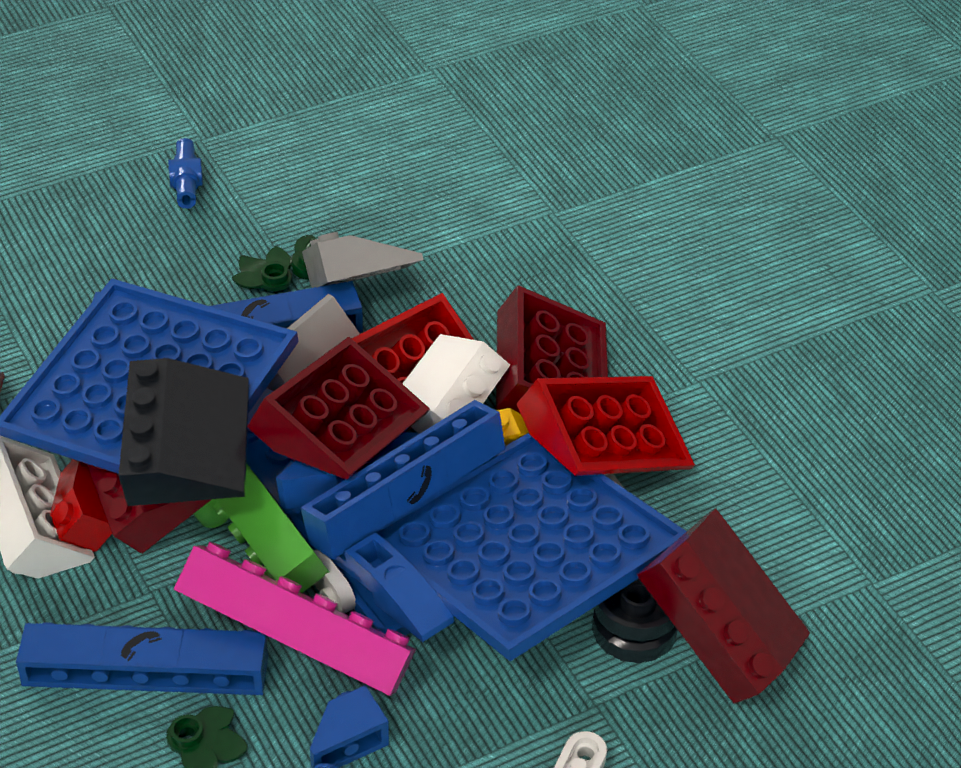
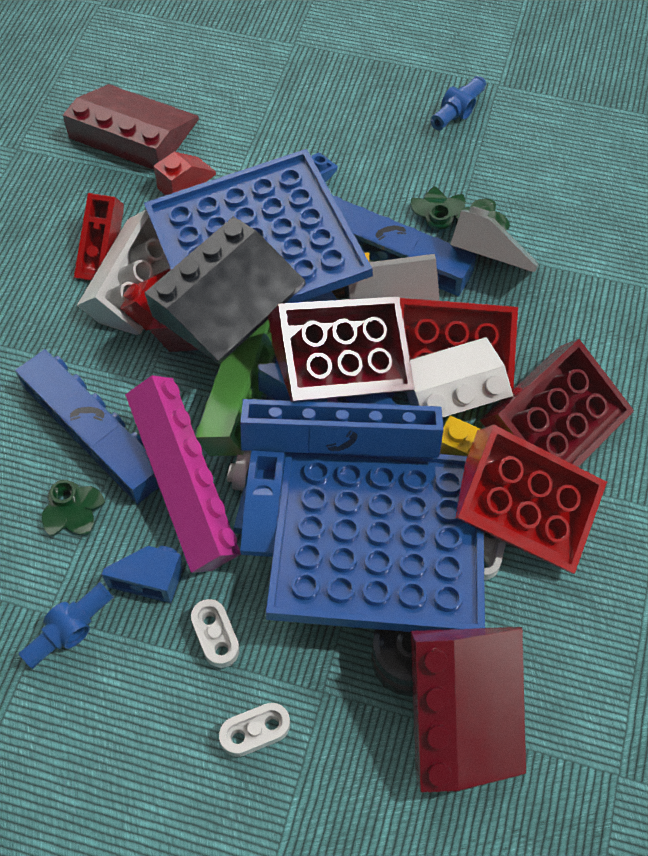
camera: 45 degrees right, 15 degrees up
(462, 729) = (215, 634): none -> white plate

